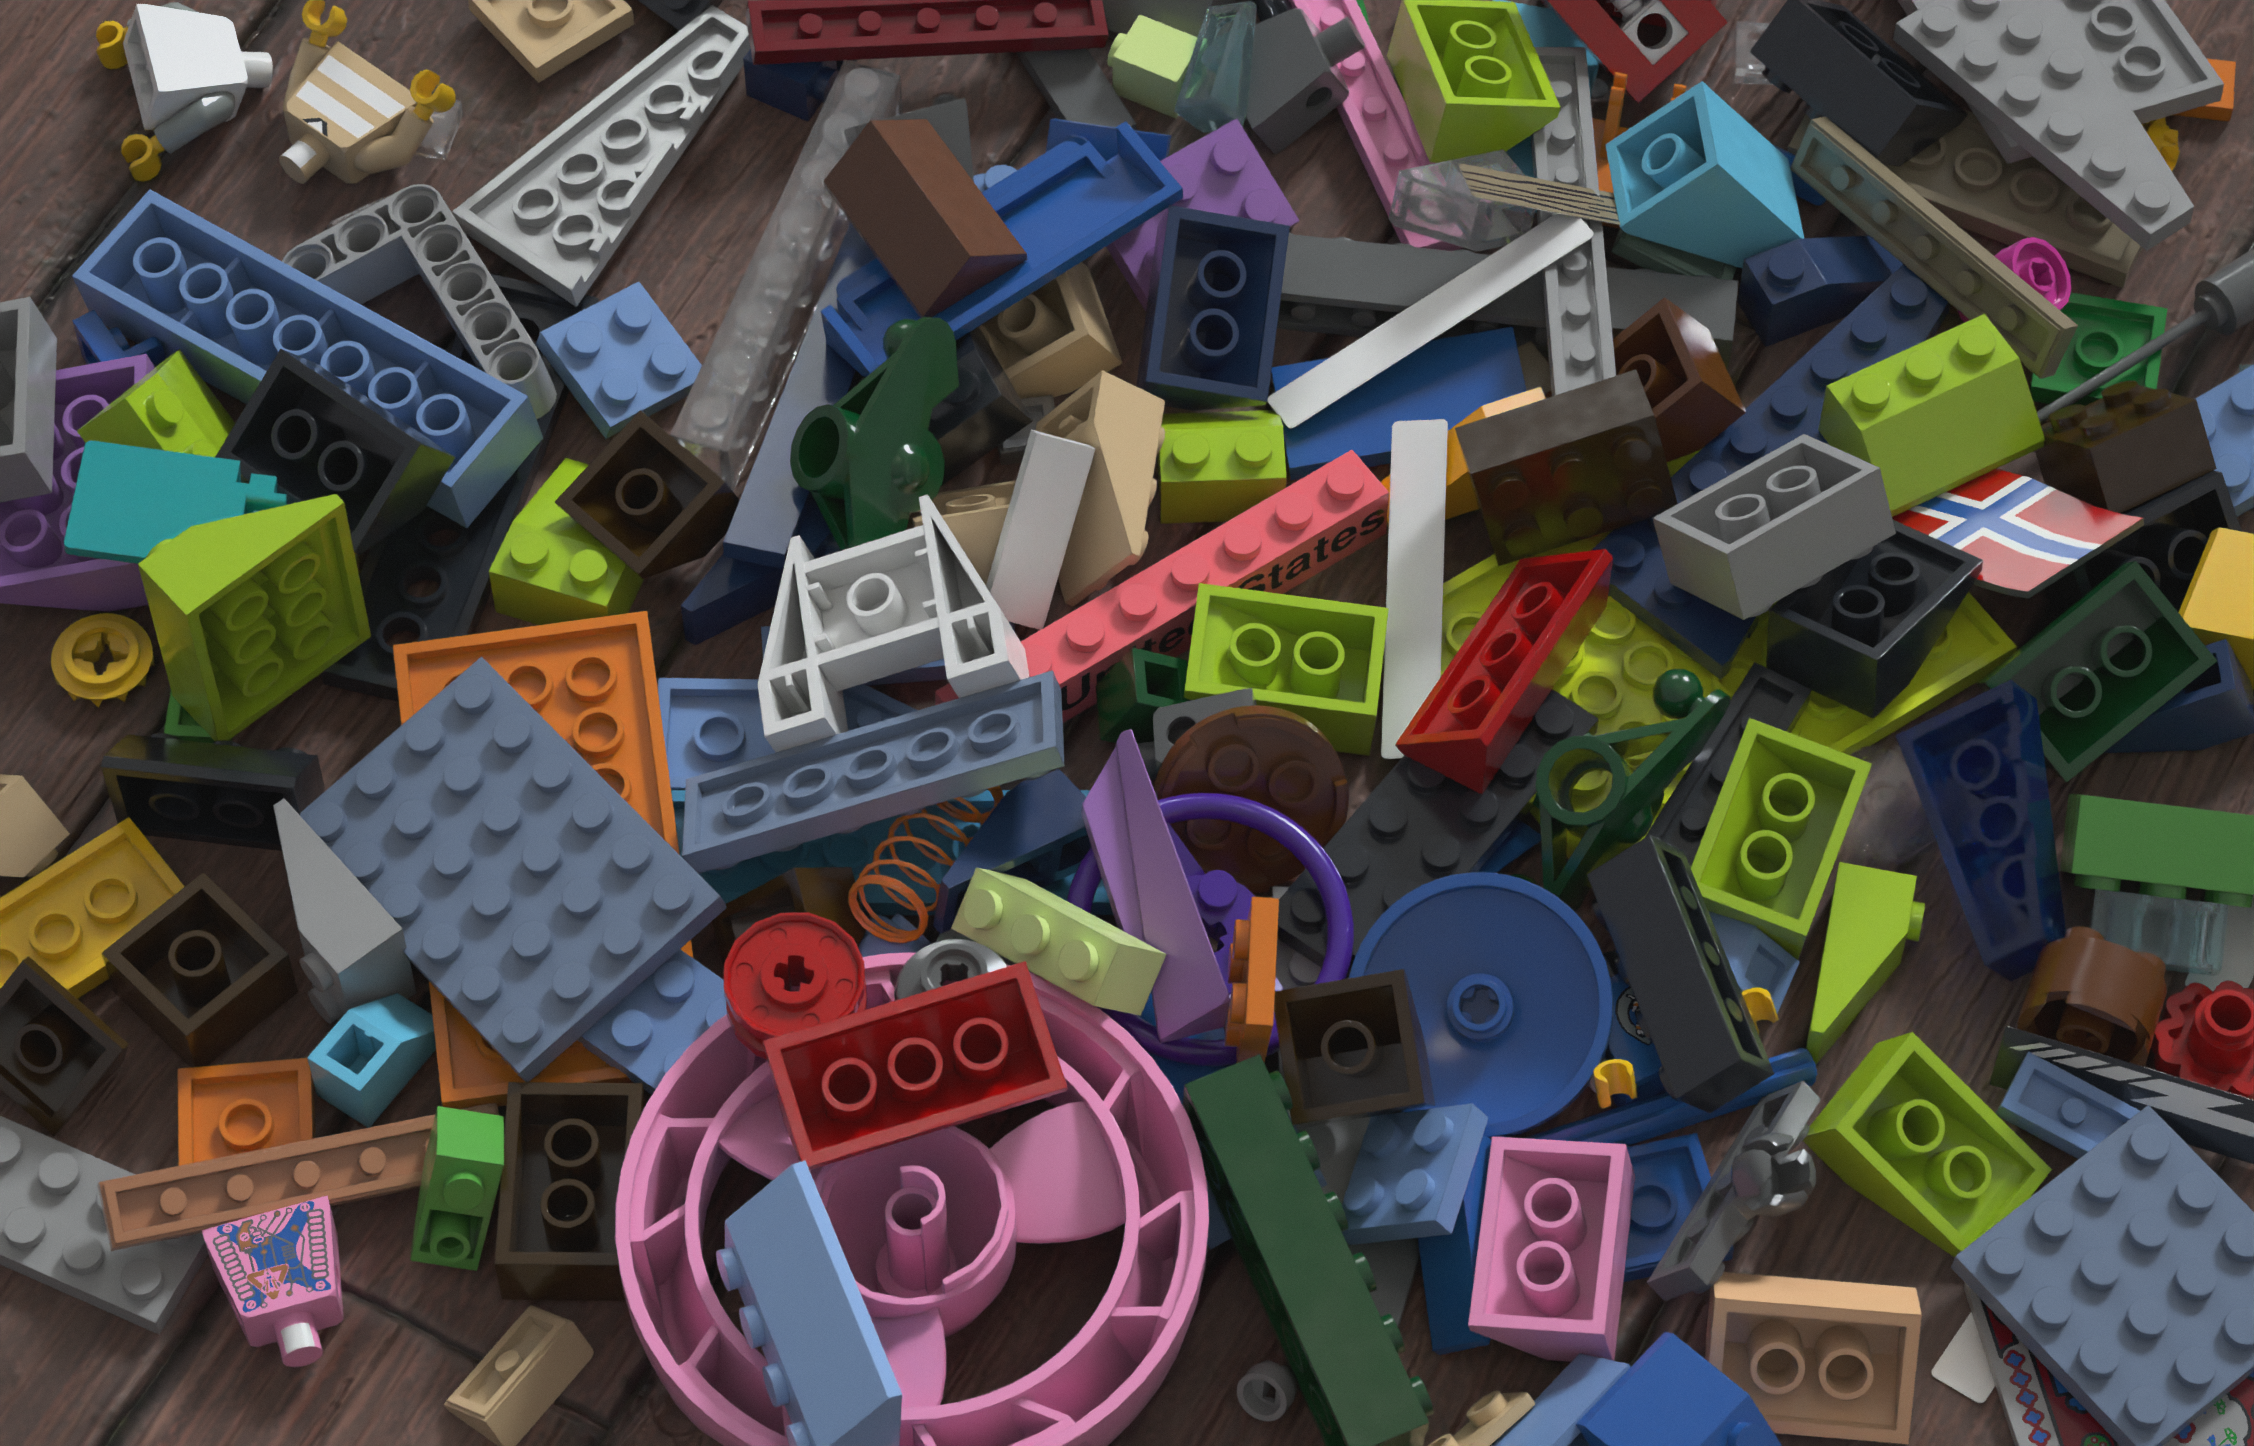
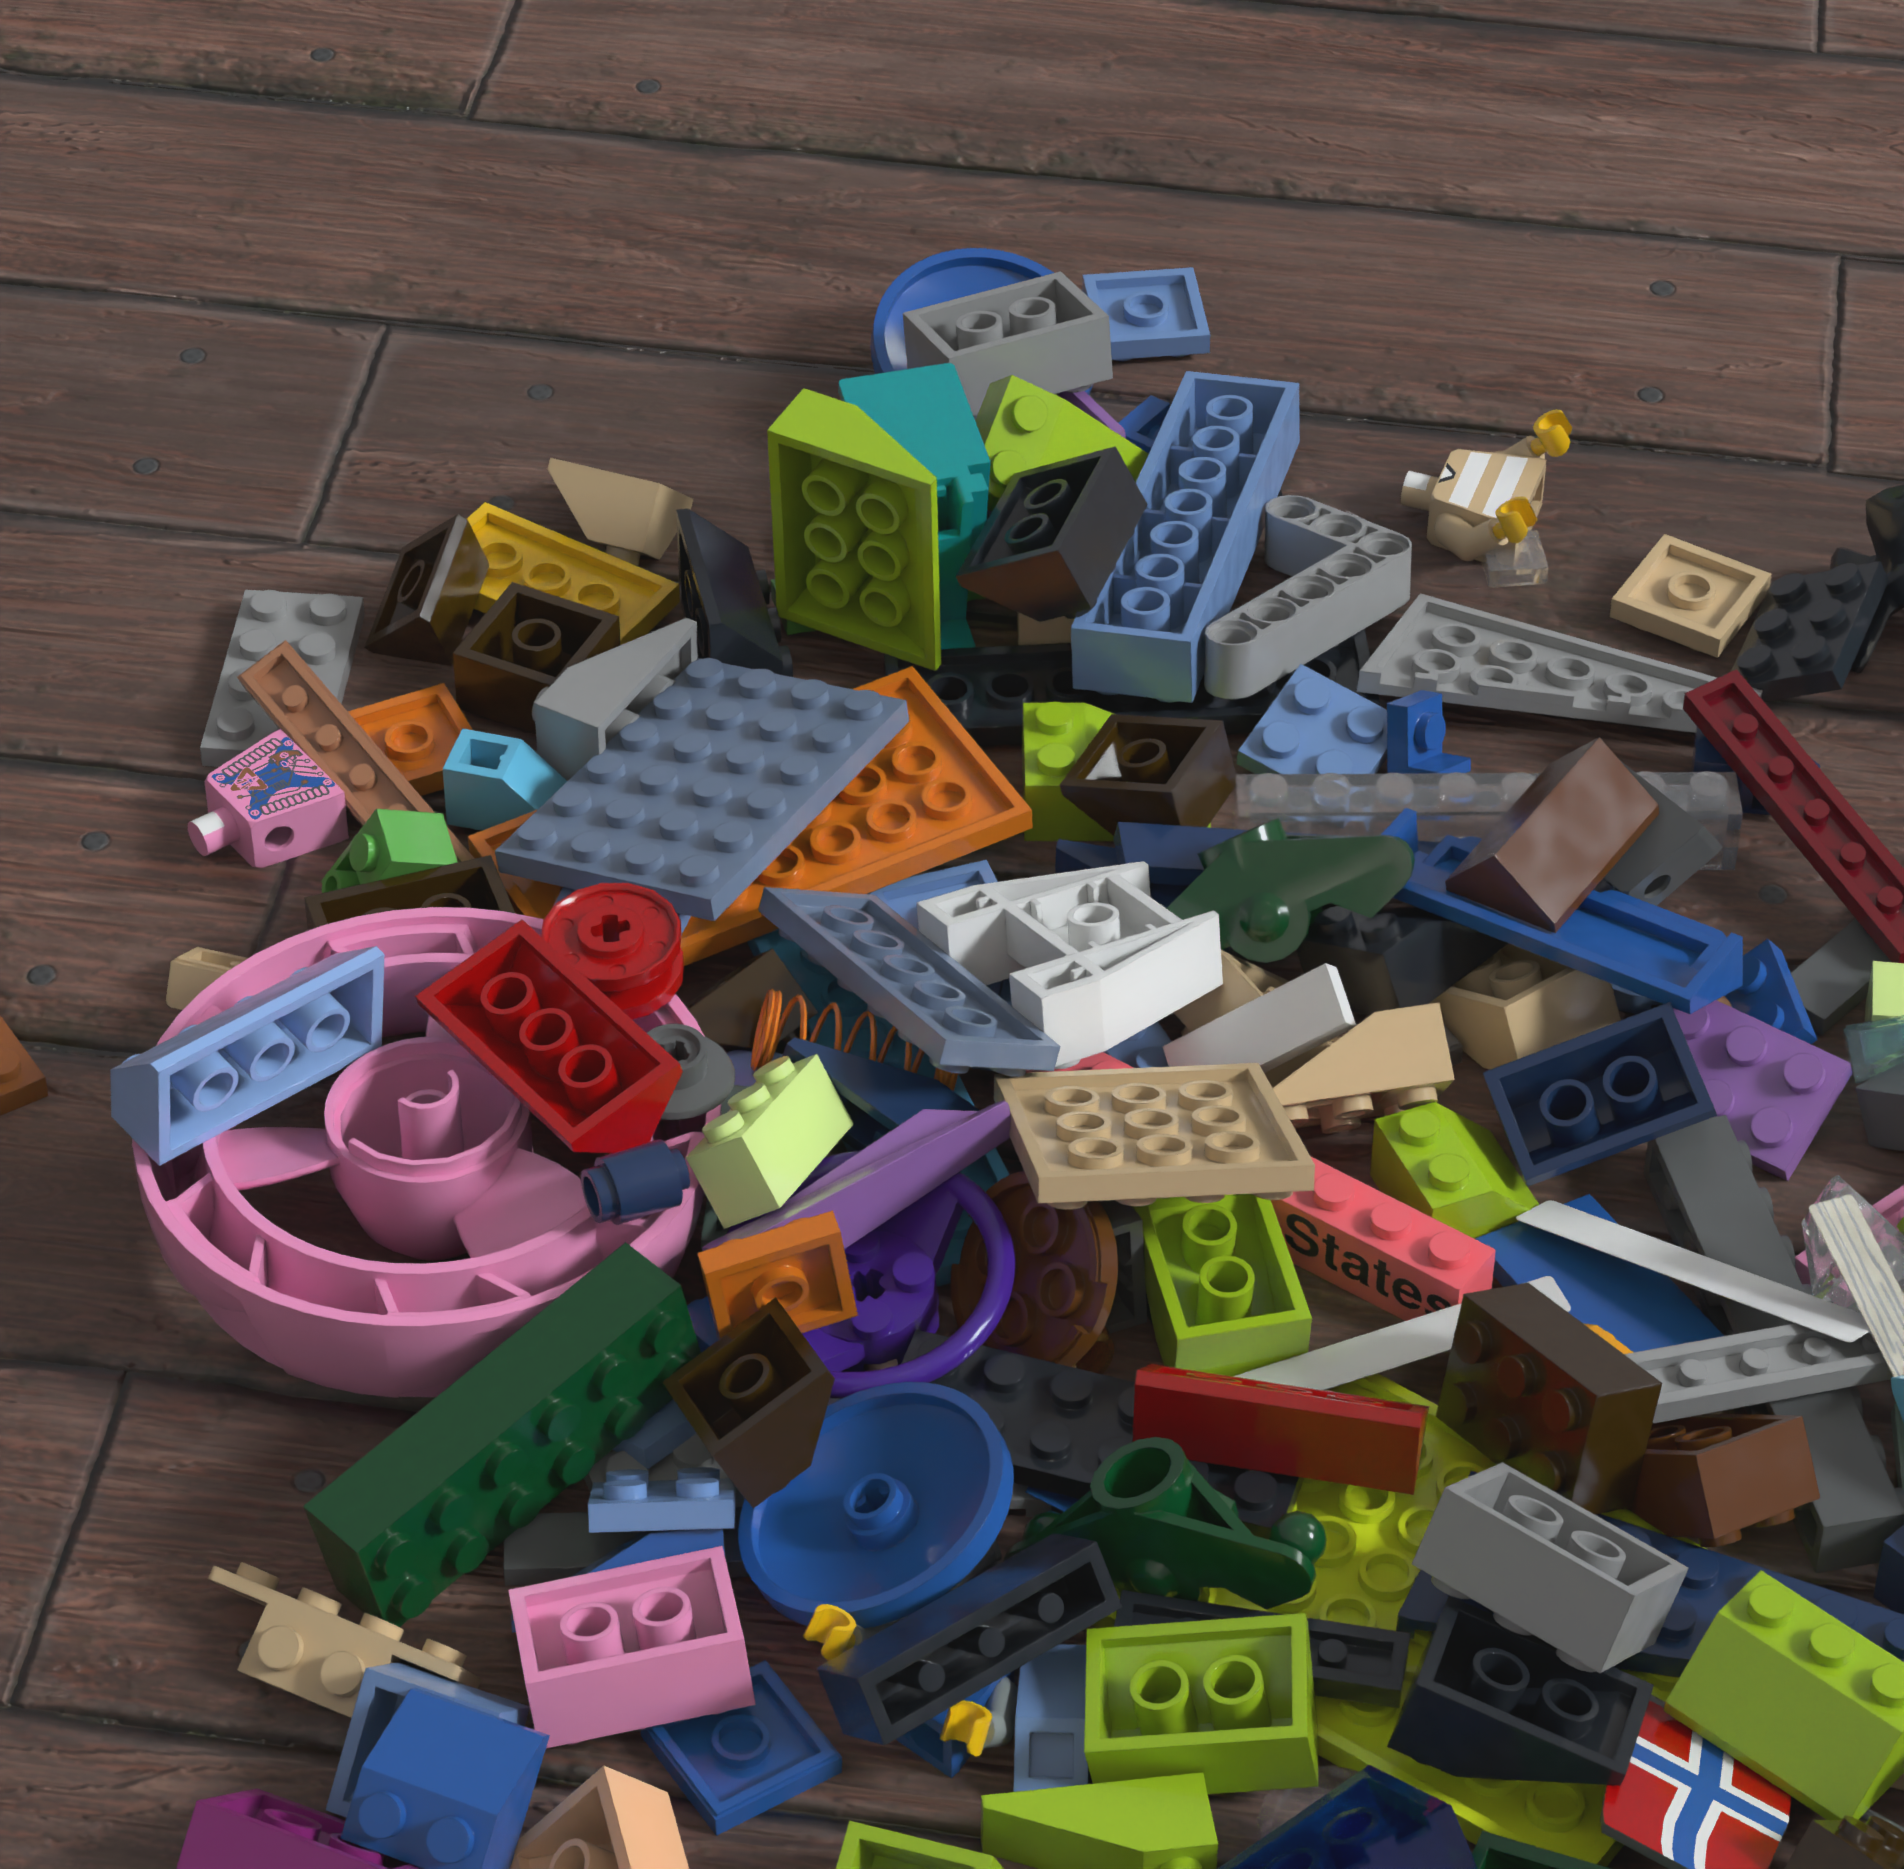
camera: 70 degrees right, 15 degrees down
(183, 76) = (1454, 390): white torso -> none
(676, 290) = (1417, 736): none -> blue bracket
(1115, 1055) = (635, 1183): none -> dark blue brick
(1190, 635) = (1153, 1135): none -> tan plate
(1664, 1114) = (891, 1764): blue axle -> none
(1749, 1181) = (761, 1779): dark grey plate -> none

